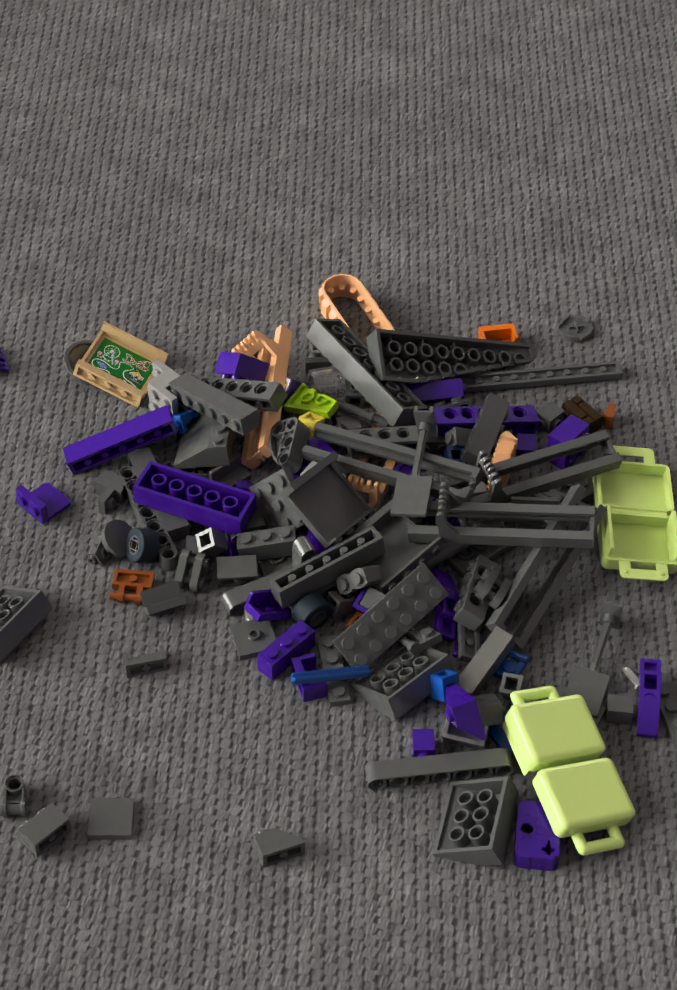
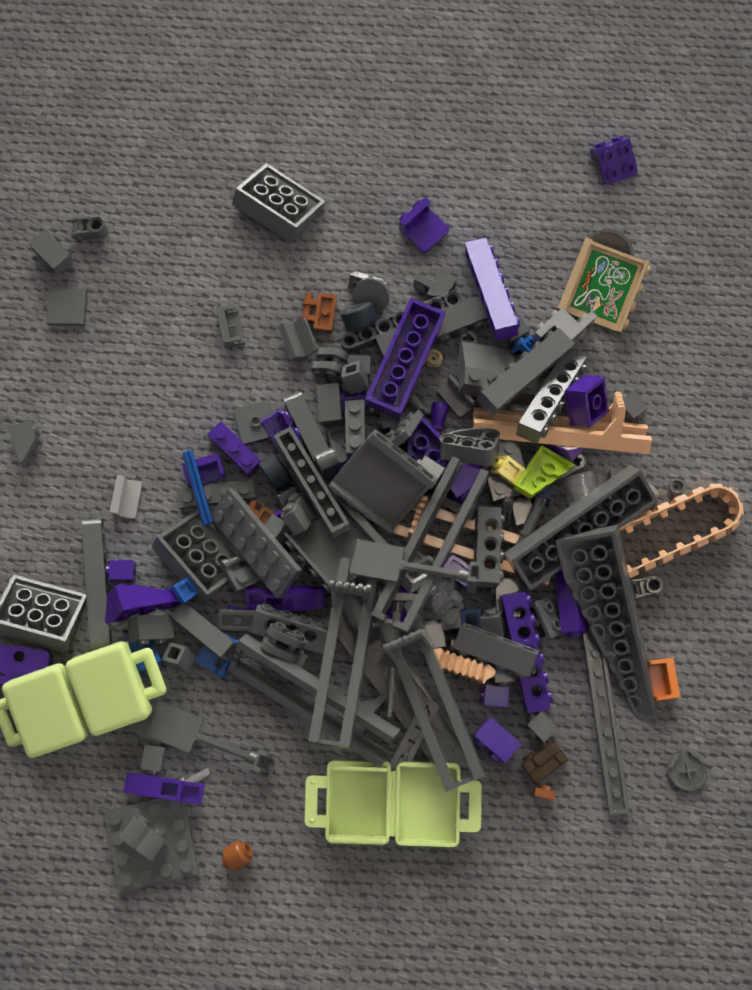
camera: 90 degrees right, 30 degrees up
(340, 750) = (125, 497): none -> light grey panel

